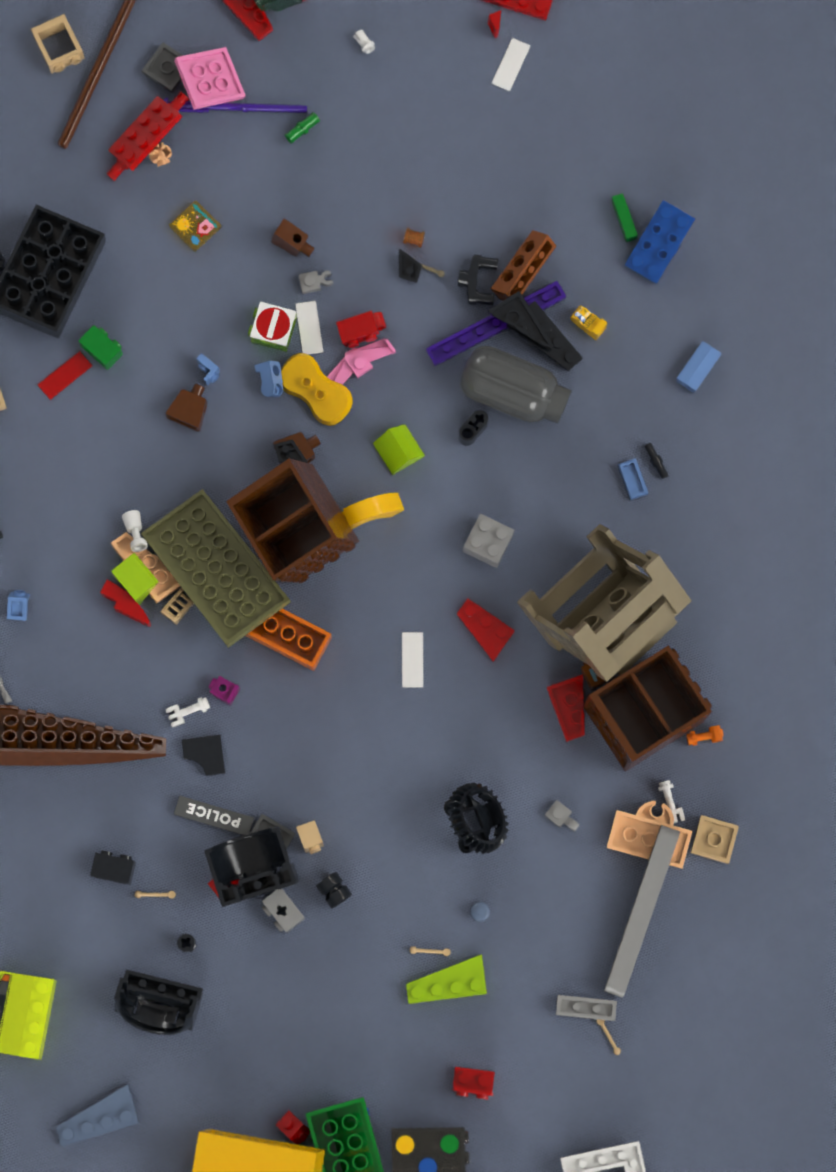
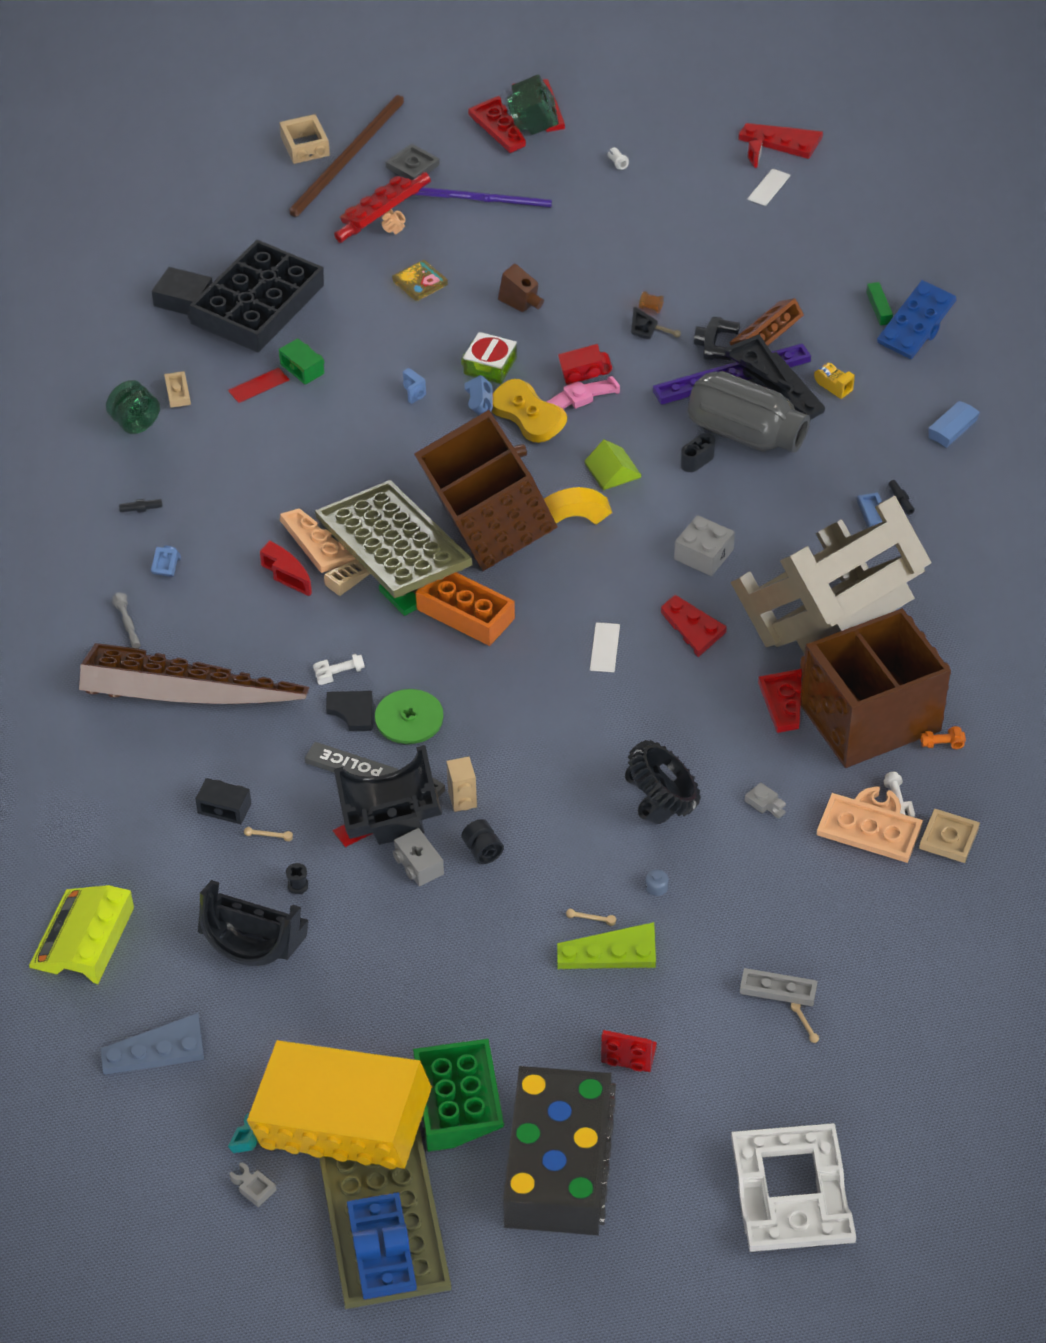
camera: 10 degrees right, 30 degrees down
(133, 524) = (308, 502): white piece -> none
(135, 578) = (300, 540): lime slope -> none
(189, 408) = (386, 415): reddish brown torso -> none
(209, 78) = (454, 169): bright pink plate -> none
(229, 694) = (384, 651): magenta brick -> none
(261, 771) = (422, 724): none -> bright green piece
(302, 127) = (544, 214): green pin -> none
(309, 327) = (529, 365): white sticker -> none
(311, 282) = (538, 330): light grey plate -> none
(642, 911) = (854, 893): light grey beam -> none

